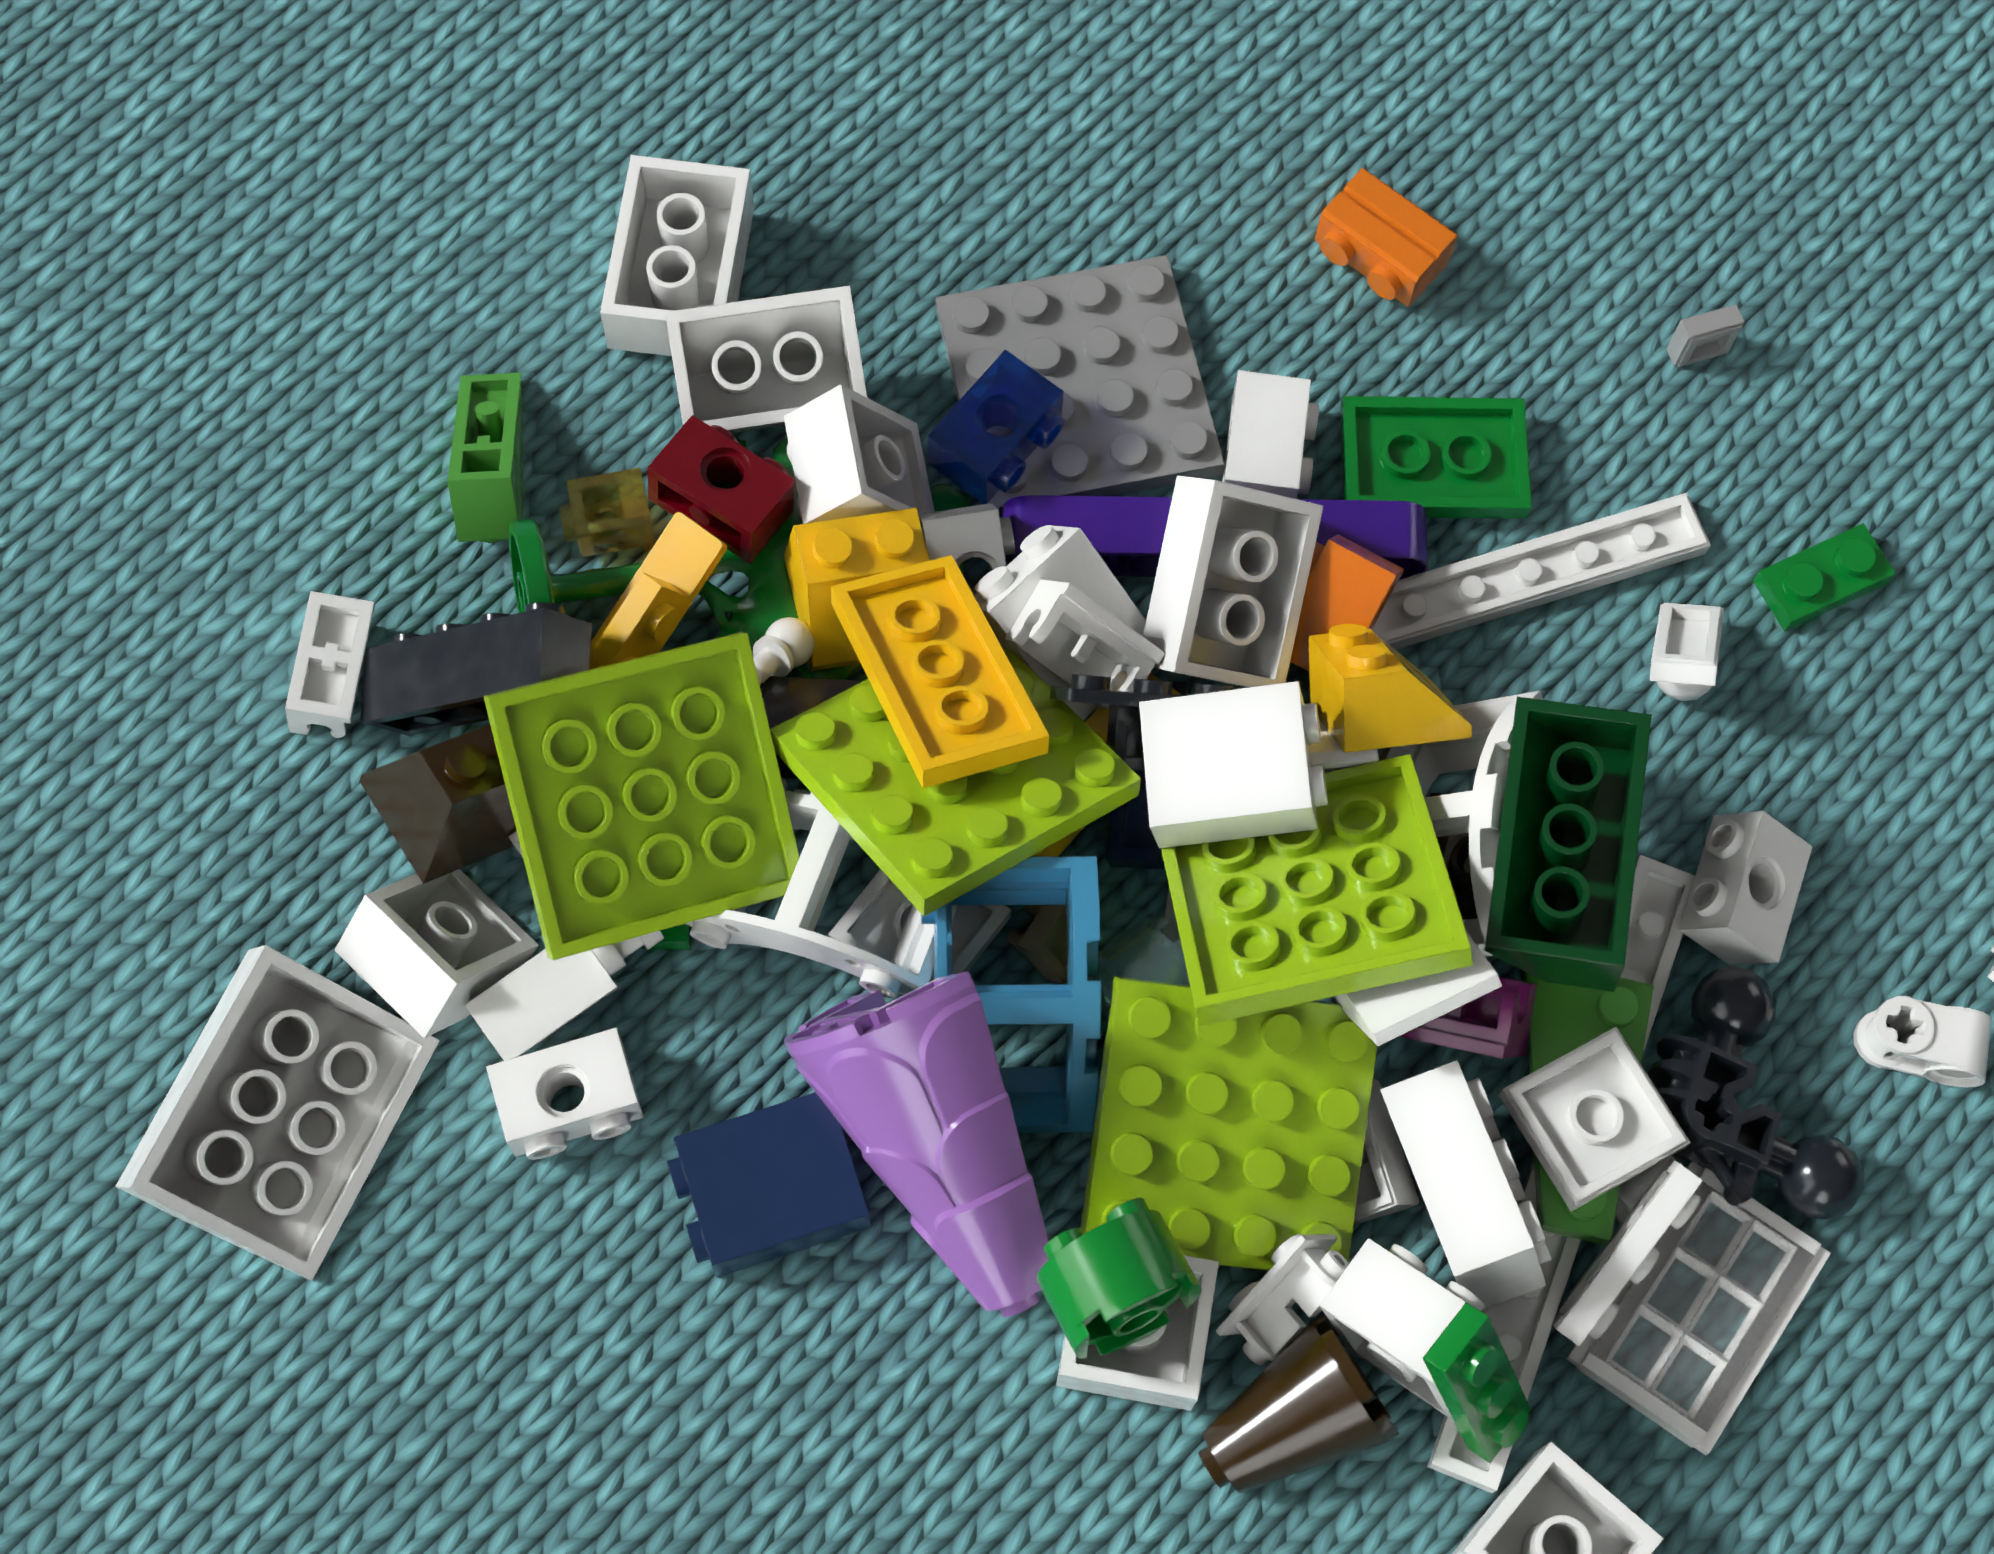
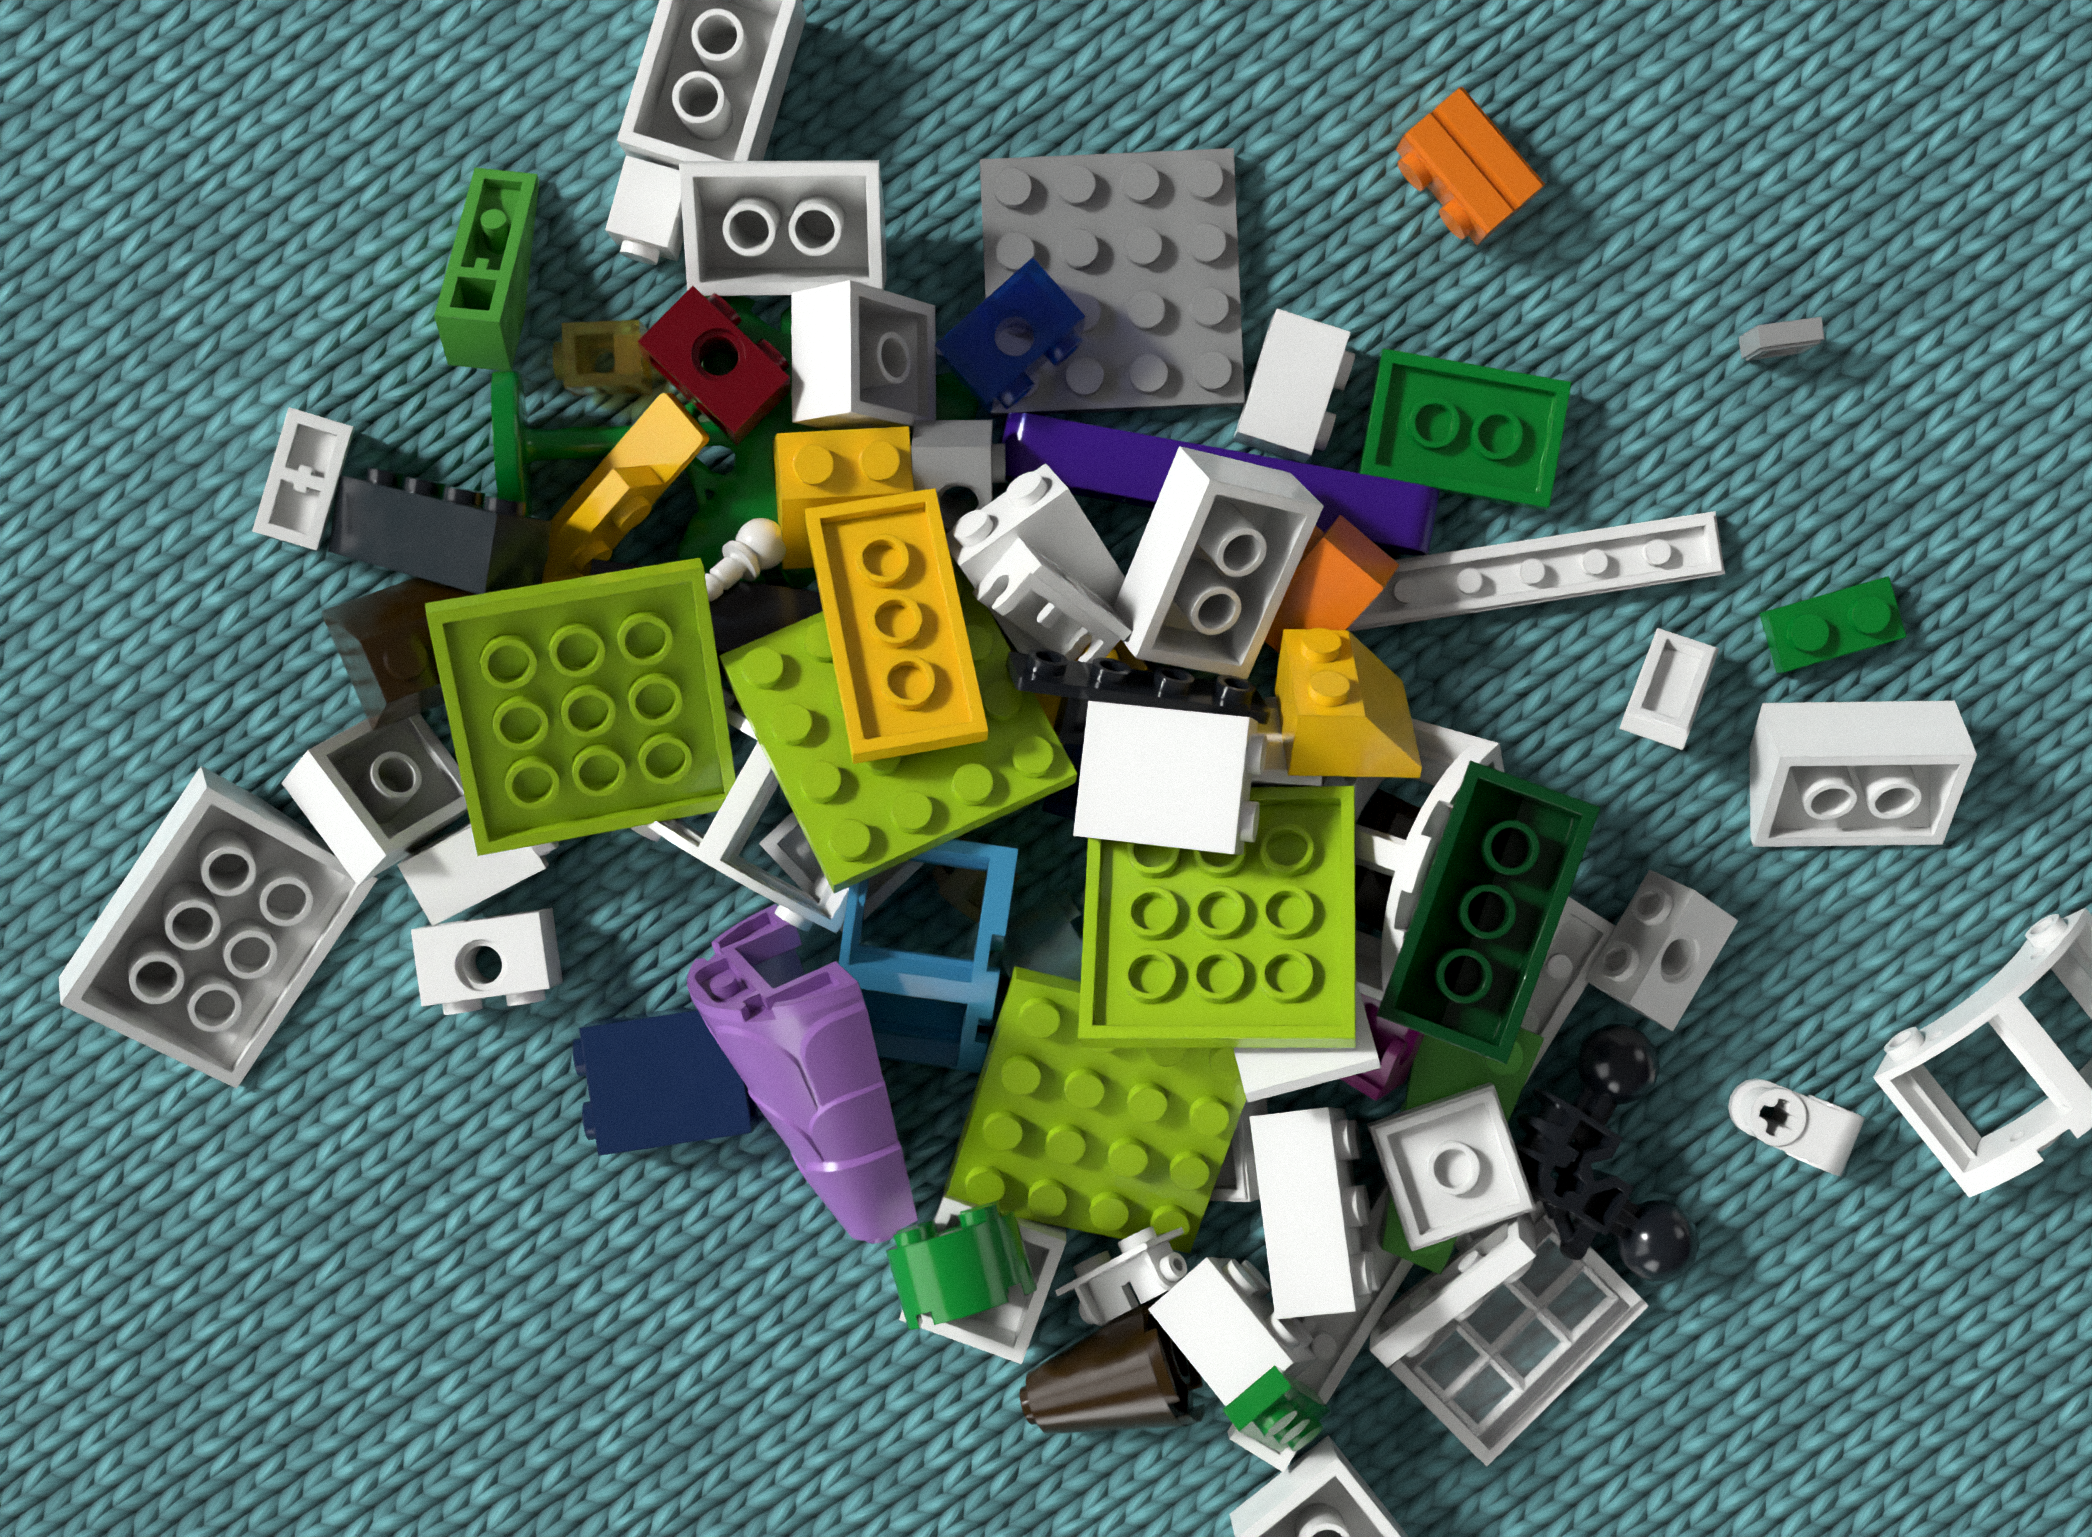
camera: 15 degrees right, 20 degrees up
(635, 381) = (647, 212): none -> white brick
(1886, 701) = (1857, 773): none -> white slope

